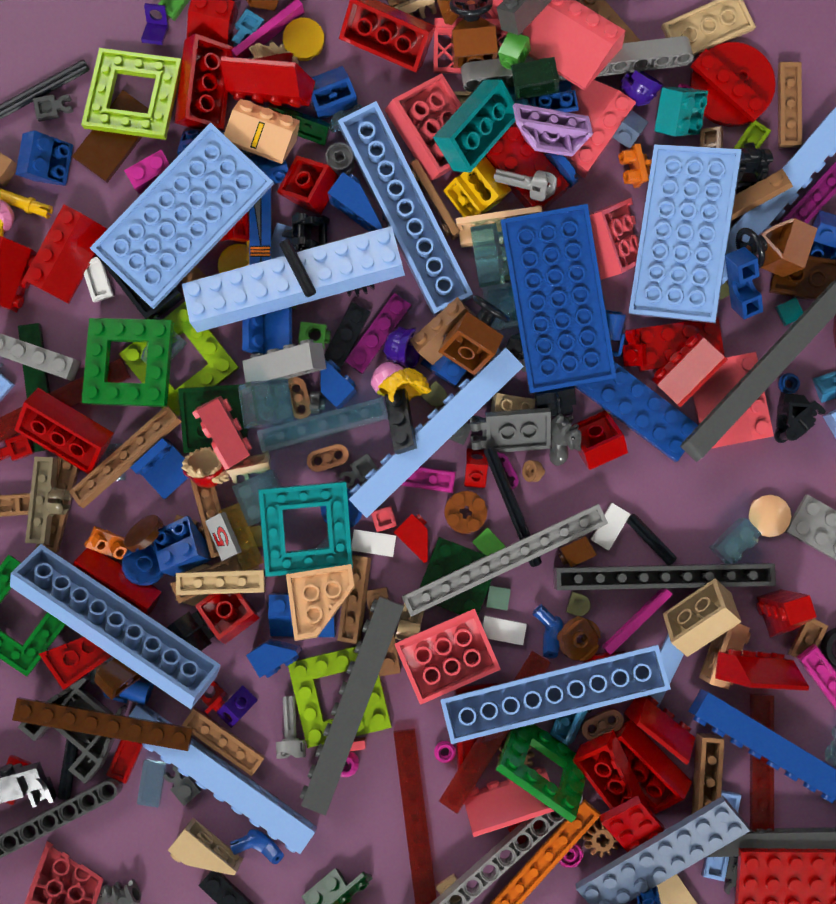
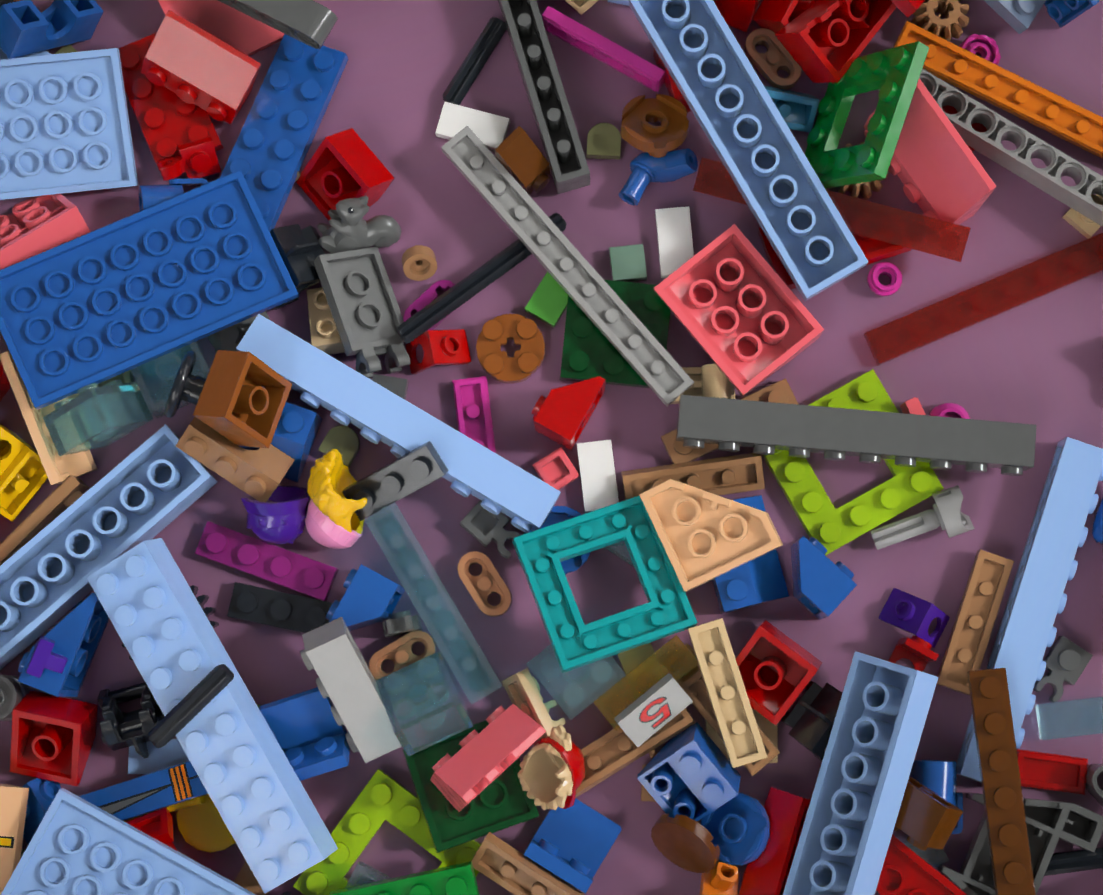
camera: 95 degrees left, 5 degrees down
(306, 329) = (285, 674): bright green brick -> none
(349, 190) = (45, 658): none -> dark purple tile

